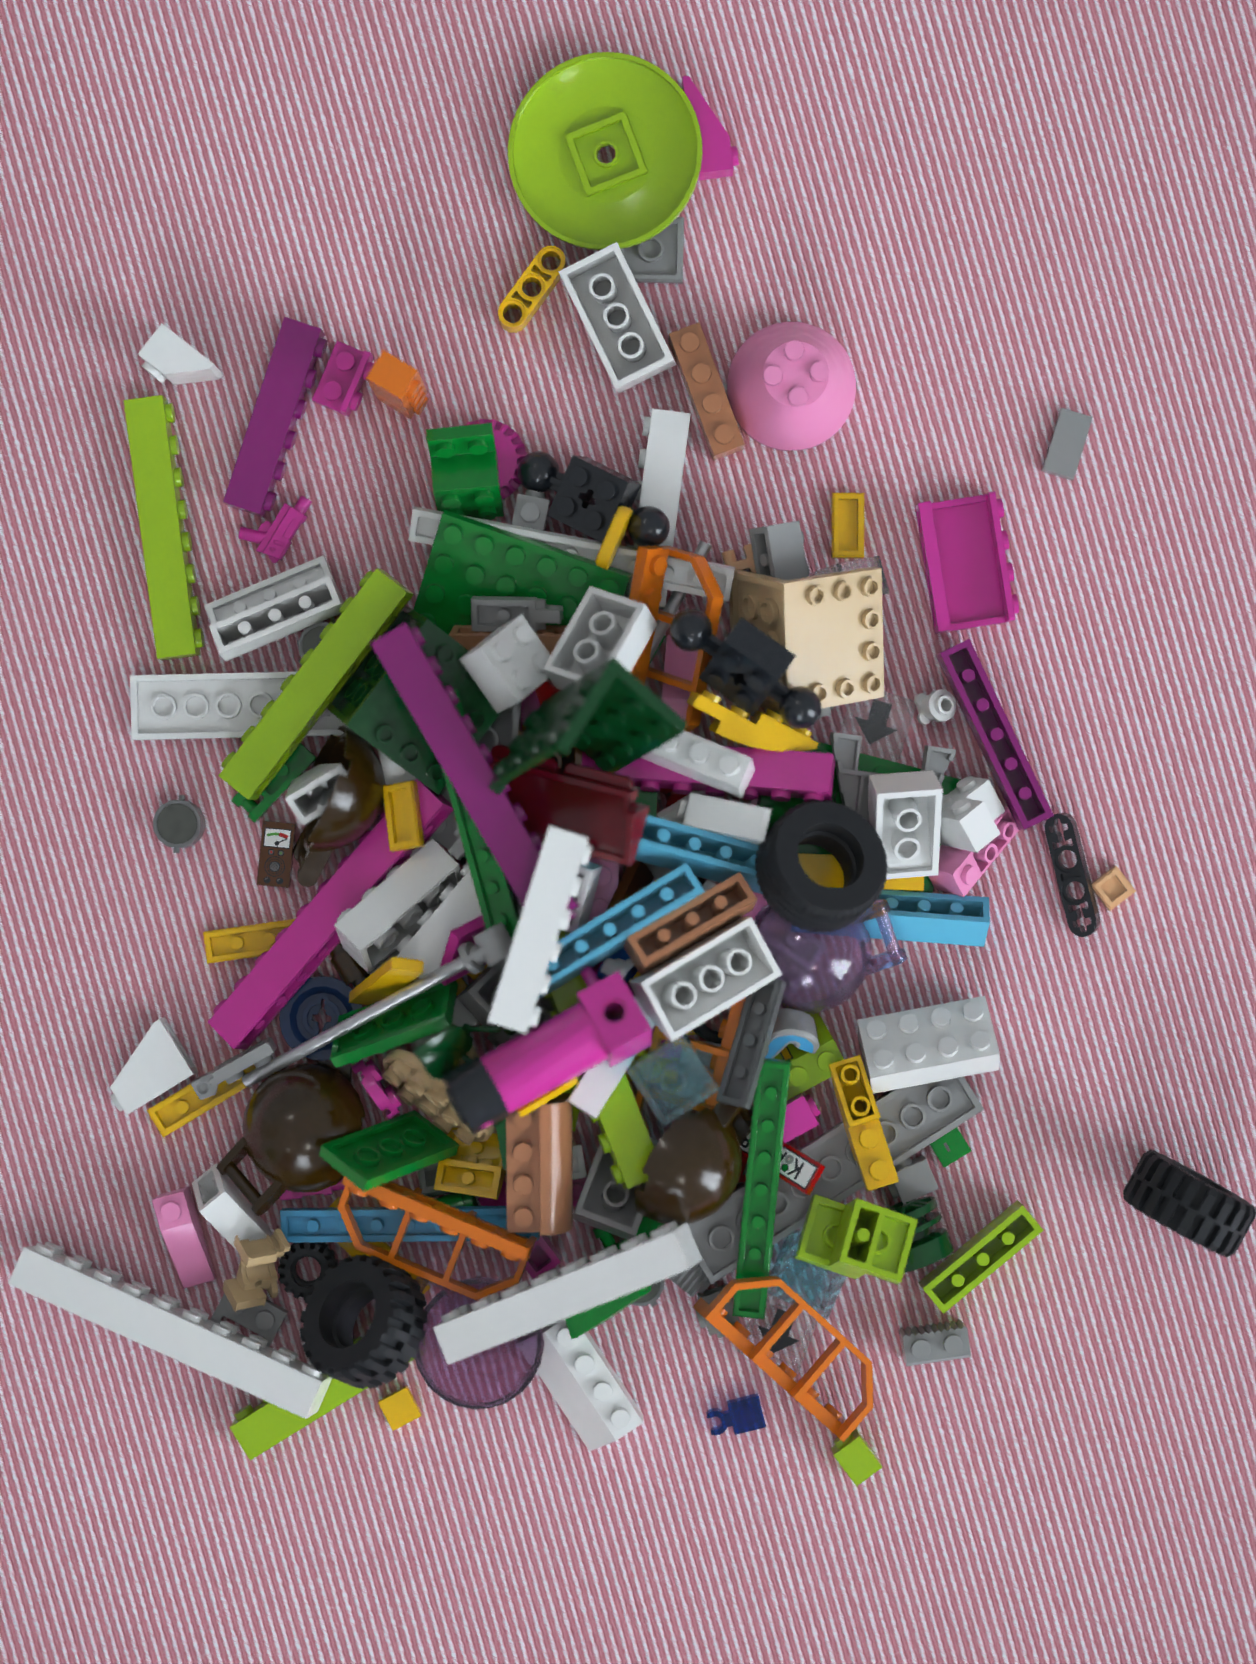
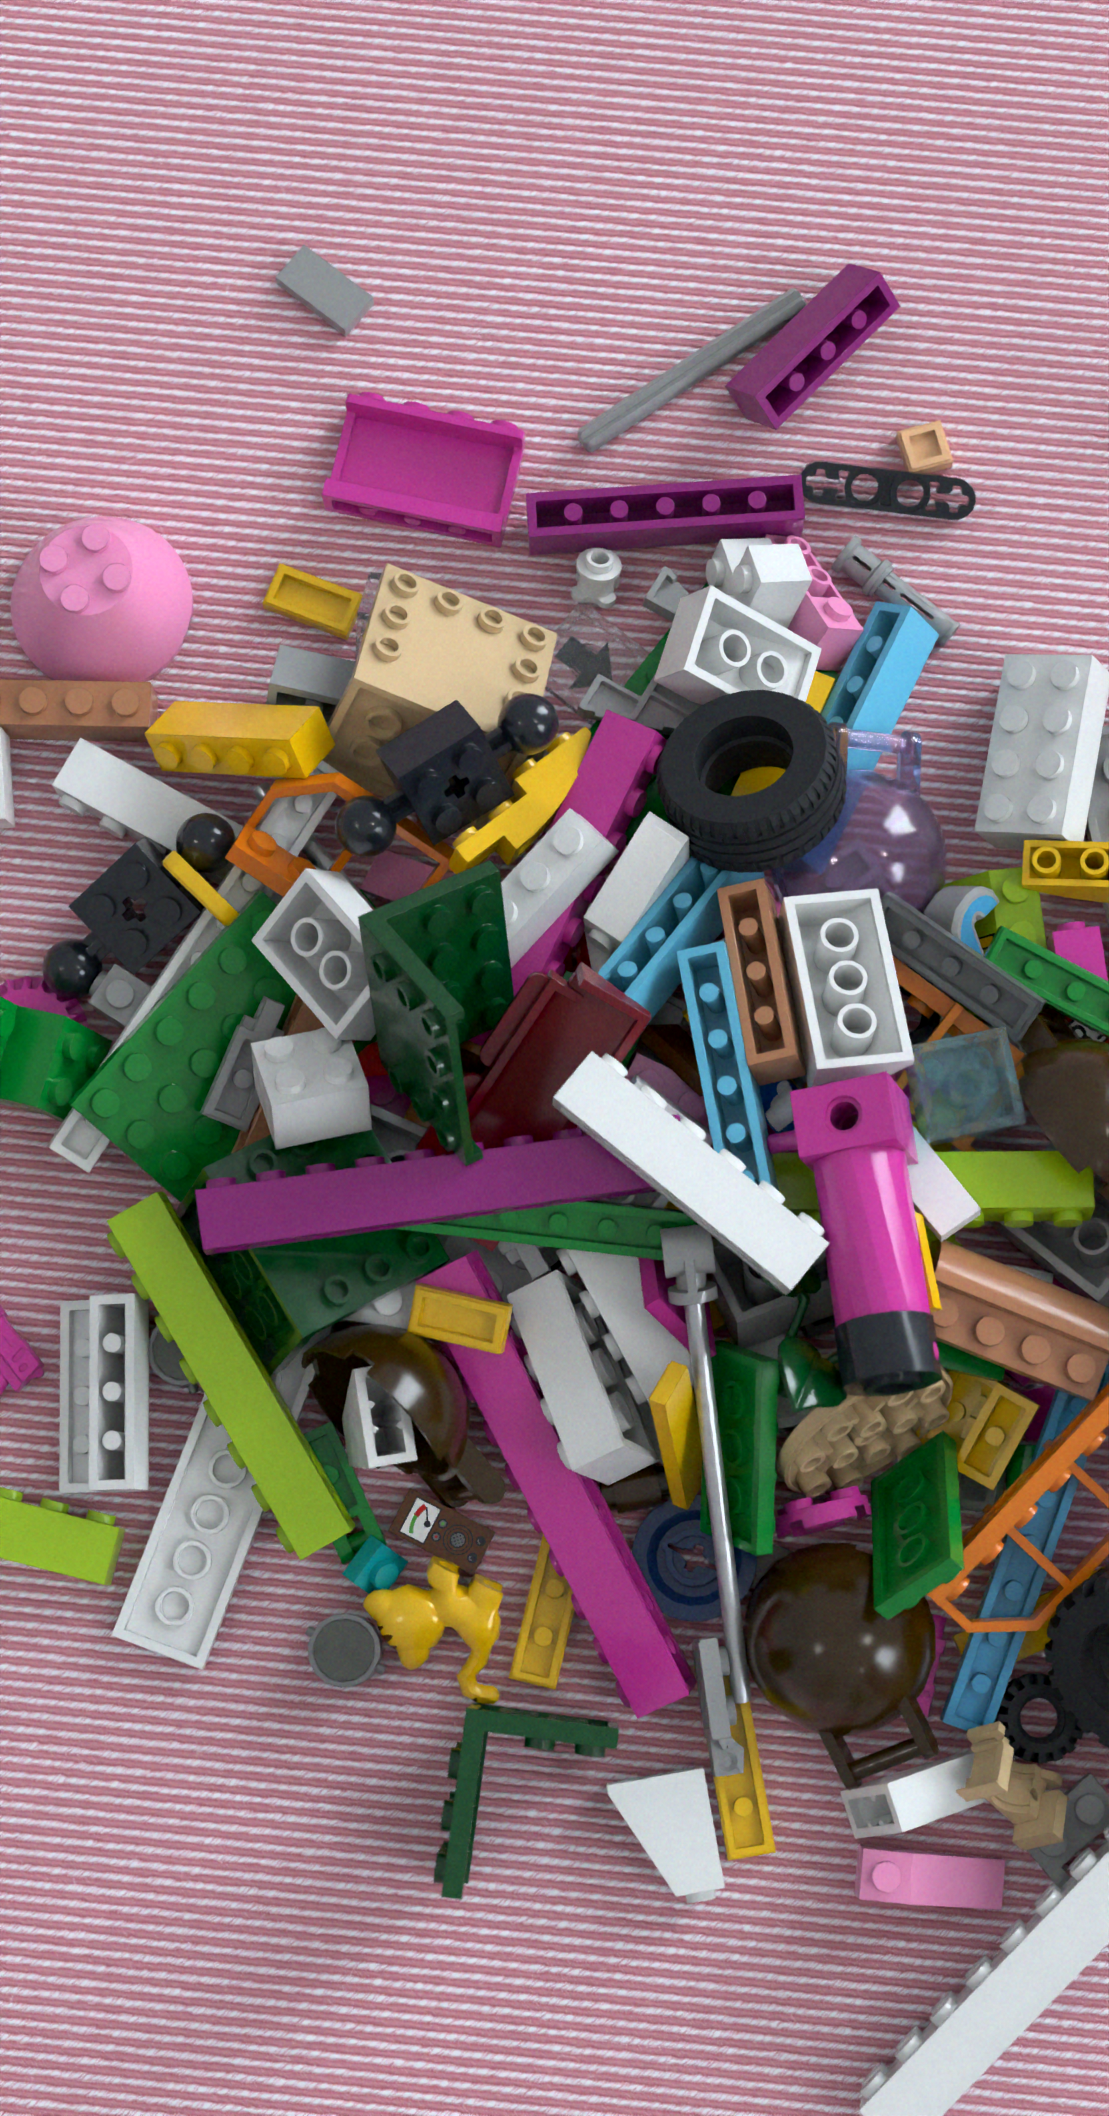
camera: 65 degrees left, 10 degrees down
(170, 949) = (467, 1766): none -> dark green bracket
(214, 860) = (415, 1621): none -> yellow animal
(236, 822) = (374, 1566): none -> teal plate
(726, 520) = (240, 739): none -> yellow brick
(993, 945) = (882, 572): none -> light grey pin
(1106, 712) = (691, 370): none -> light grey axle
(1152, 787) = (812, 346): none -> magenta brick

